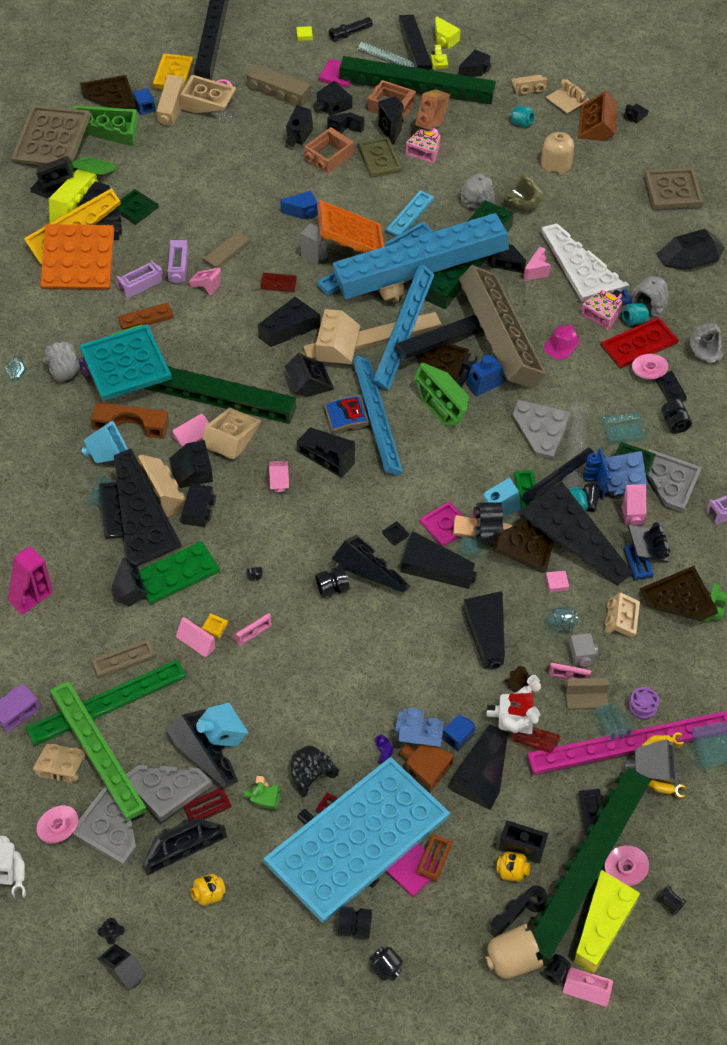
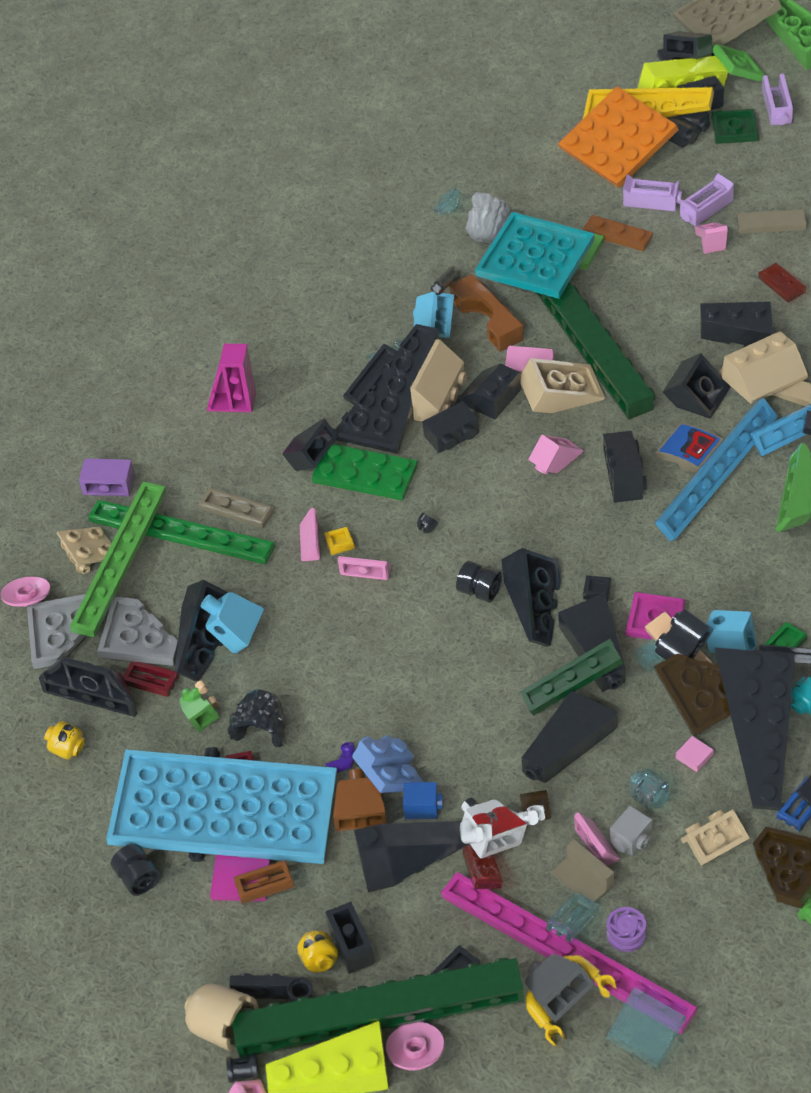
camera: 55 degrees right, 5 degrees down
(92, 416) = (444, 280): none -> black axle
(144, 174) = (777, 101): none -> lavender window
(386, 963) = (117, 925): black head -> none
(455, 592) = (571, 677): none -> dark green plate

